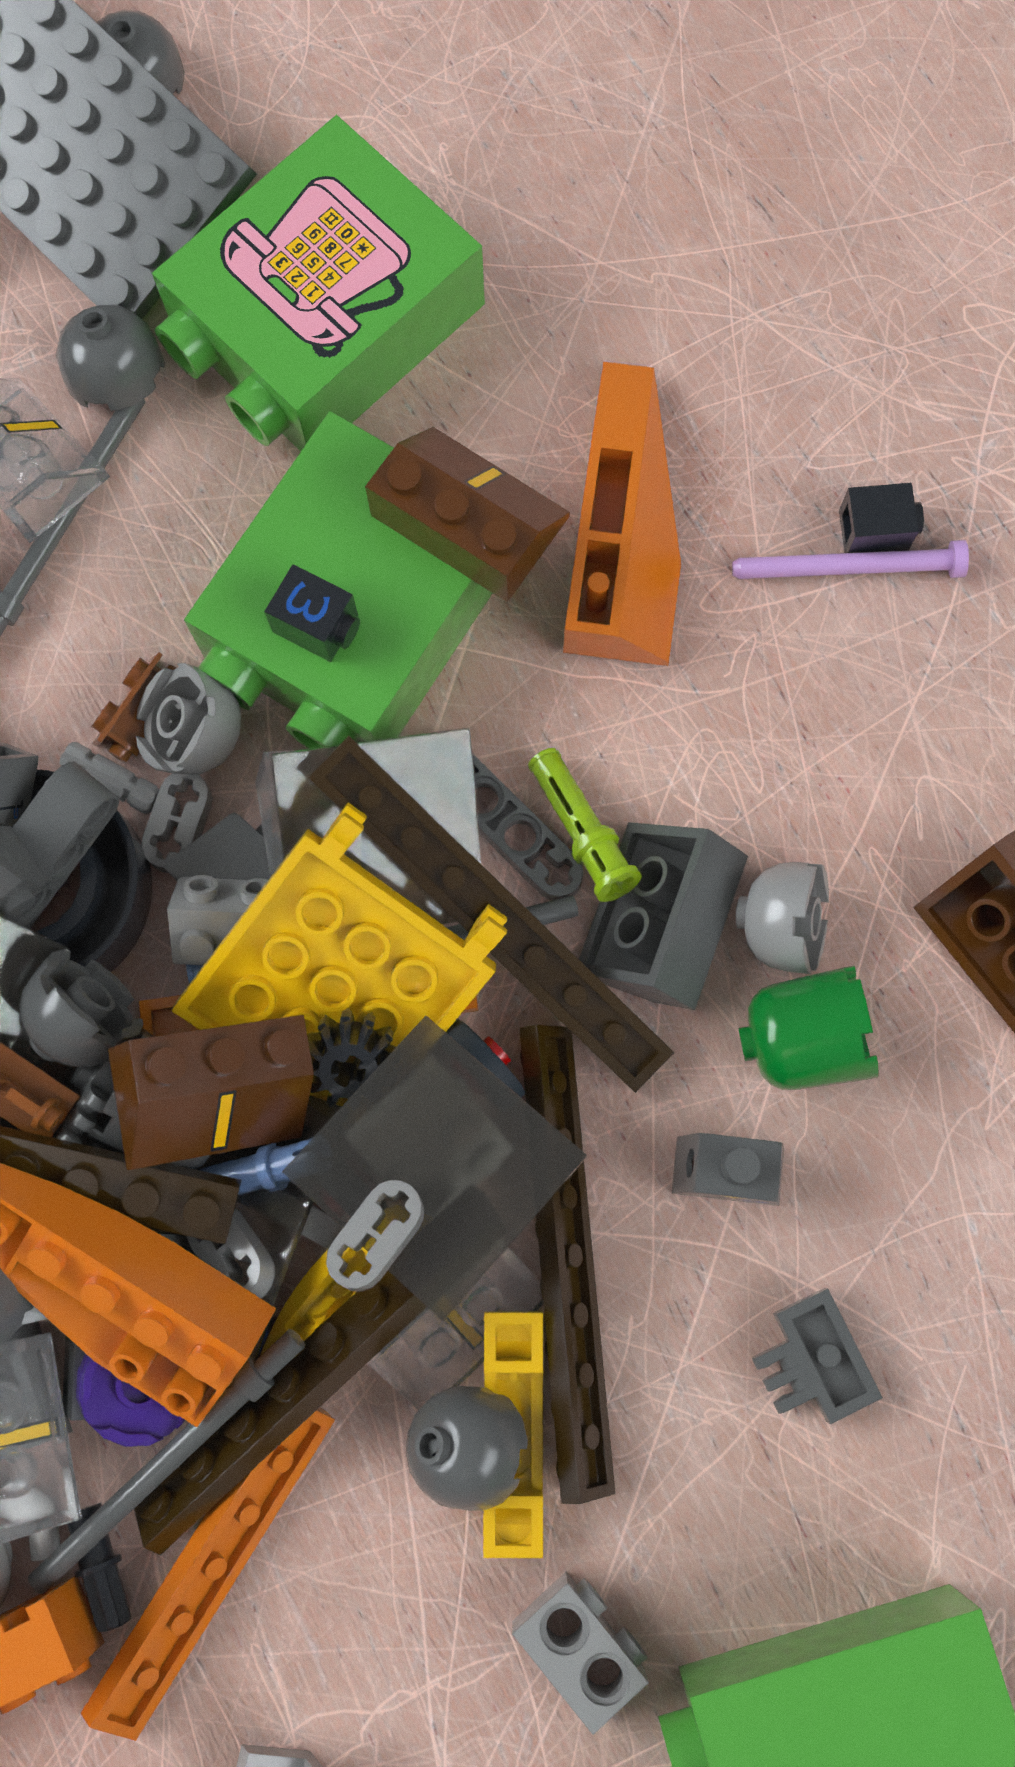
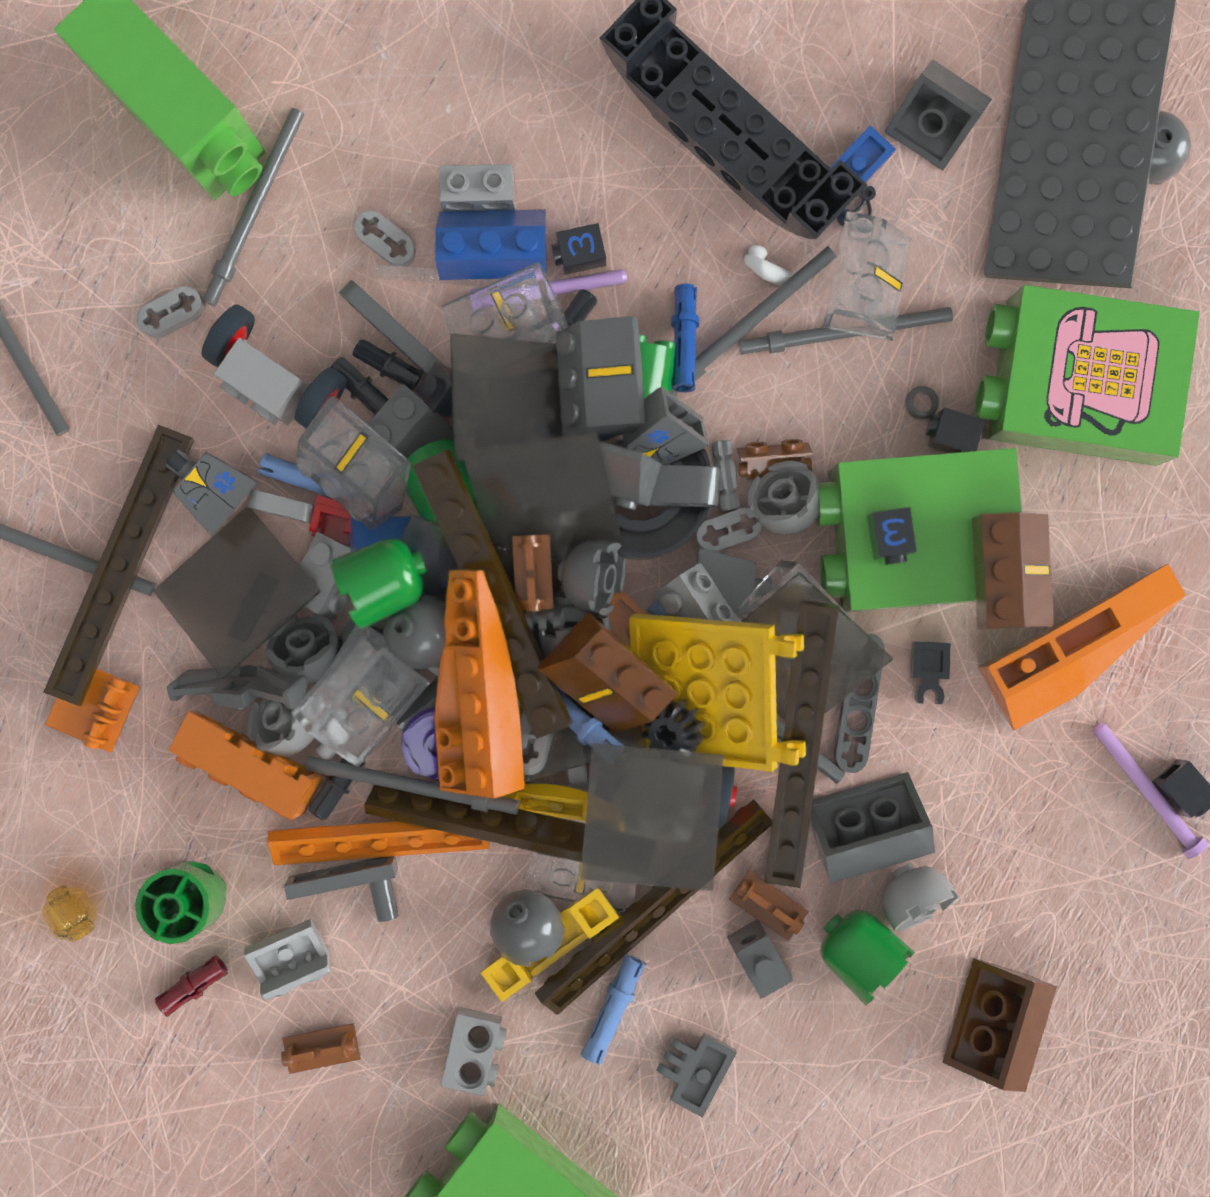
camera: 55 degrees right, 10 degrees up
(108, 357) = (960, 285): dark grey cylinder -> none
(205, 482) = (934, 400): none -> dark grey piece
(250, 1601) = (374, 871): none -> dark grey piece
(260, 474) = (954, 431): none -> black brick
(363, 1226) = (597, 806): light grey beam -> none
(519, 702) = (930, 663): none -> black plate
(593, 843) = (881, 765): lime pin -> none
(668, 1427) = (617, 1000): none -> medium blue pin
(670, 1109) = (769, 905): none -> dark orange hinge

